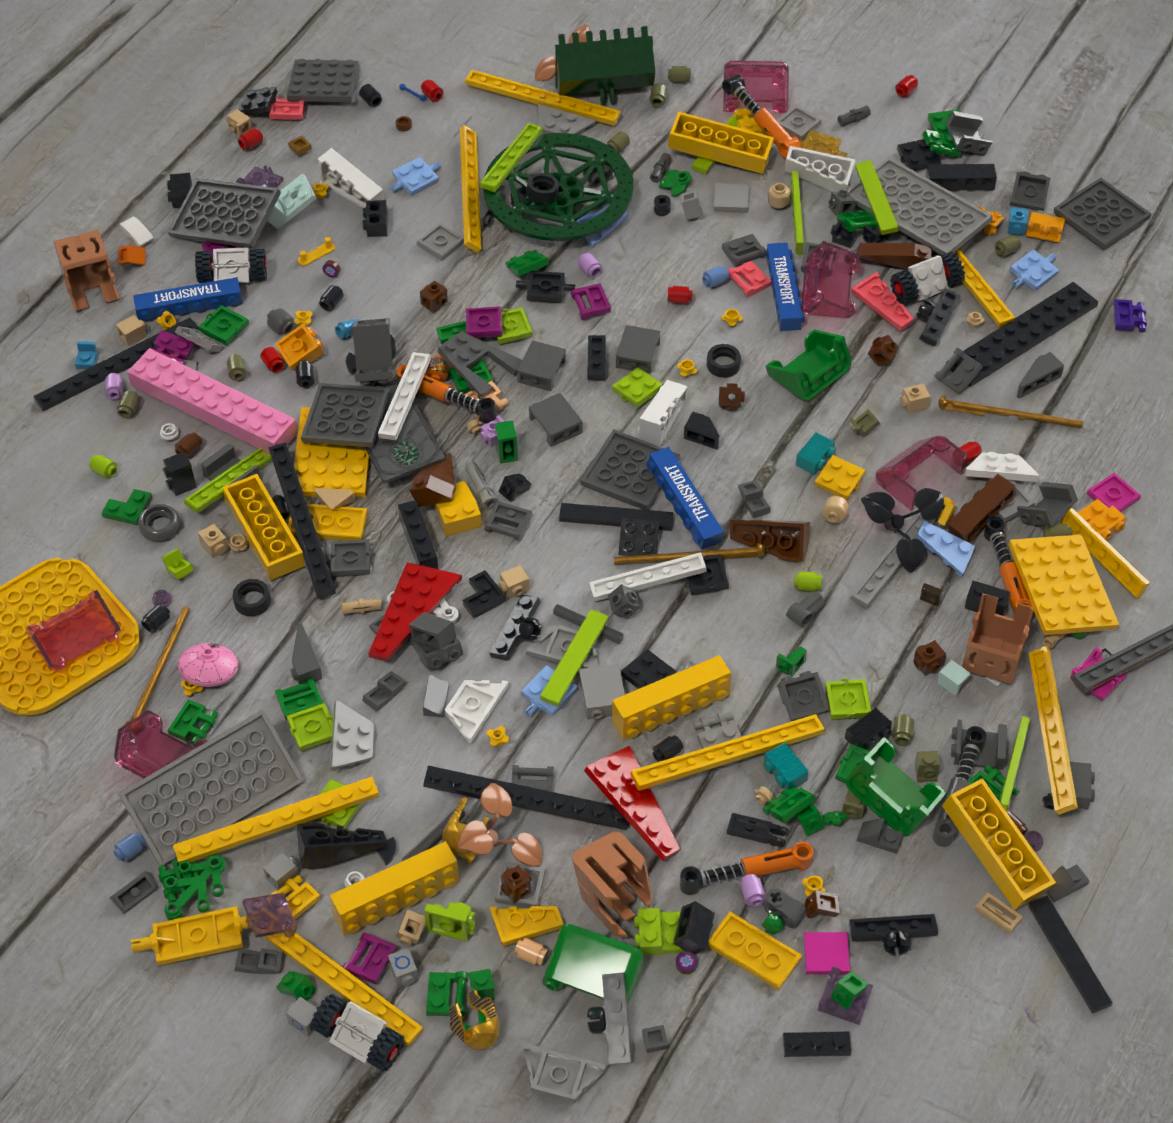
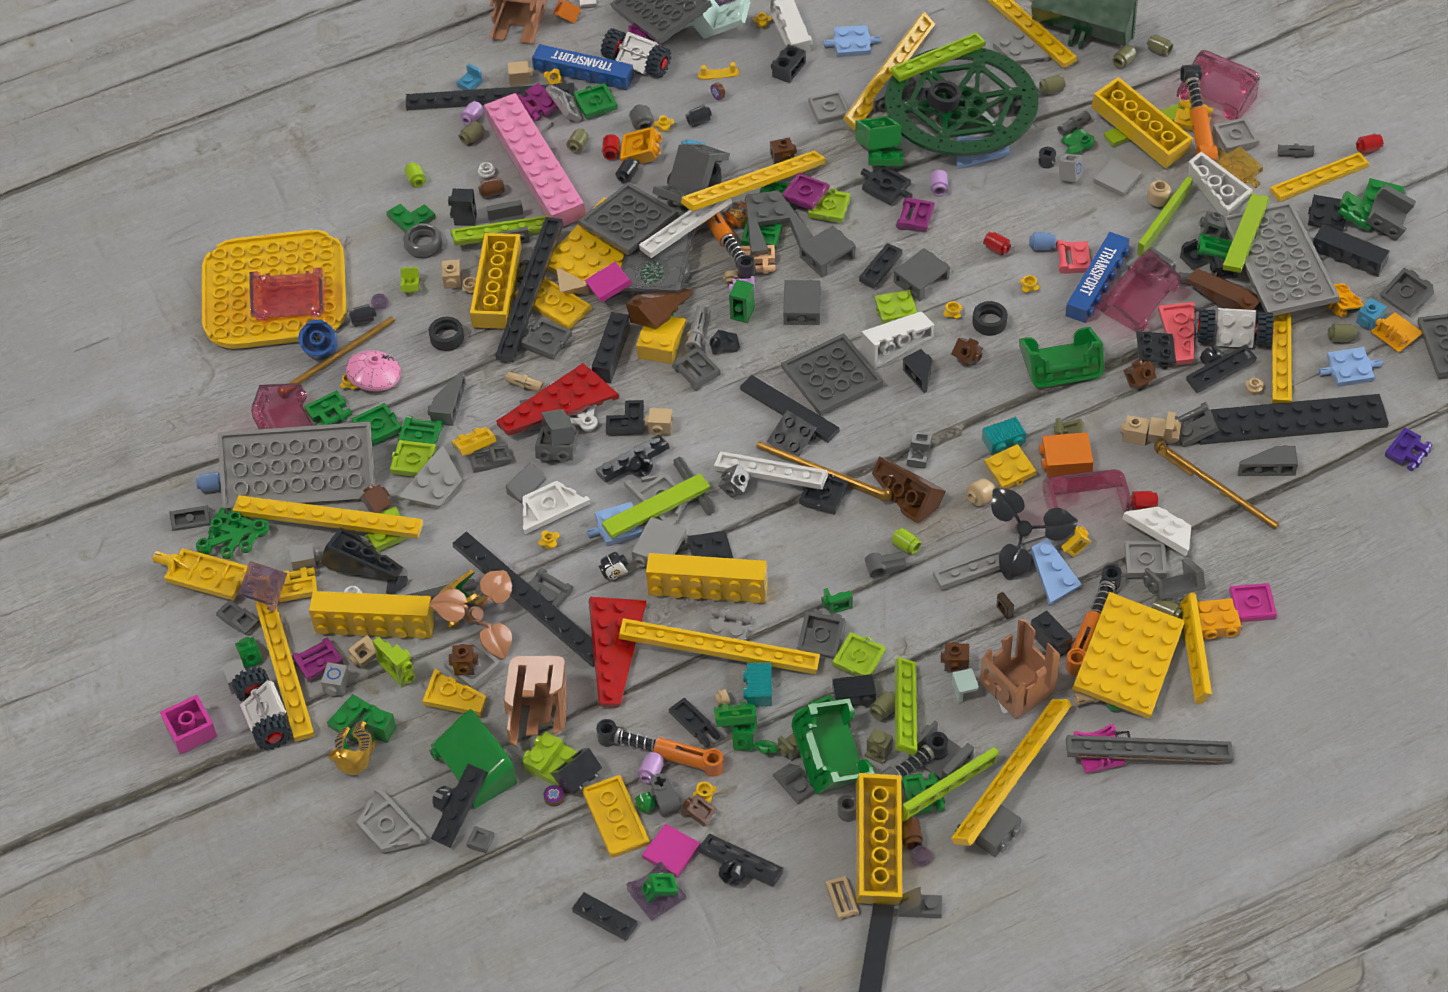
camera: 35 degrees right, 0 degrees up
(139, 650) = (309, 335): none -> blue brick
(249, 704) = (382, 423): none -> green plate
(296, 1087) = (188, 724): none -> dark pink brick
(309, 781) = (376, 498): none -> reddish brown brick
(358, 681) = (474, 440): none -> yellow plate
(372, 479) = (608, 282): none -> dark pink tile
(435, 332) = (752, 180): none -> yellow plate
(508, 244) = (878, 133): none -> green brick
(531, 952) = (439, 719): light nougat brick -> none
(577, 729) = (613, 566): none -> black head
(667, 748) = (674, 618): black brick -> none
(685, 498) = (854, 420): blue brick -> none
(743, 249) = (1089, 228): dark grey plate -> none
(877, 444) = (1066, 454): none -> orange brick
(879, 322) = (1156, 348): none -> black hinge
(887, 129) = (1319, 177): none -> yellow tile
(925, 720) = (905, 706): none -> lime tile
(942, 385) = (1164, 429): none -> tan brick
(985, 503) = (1116, 550): reddish brown brick -> none

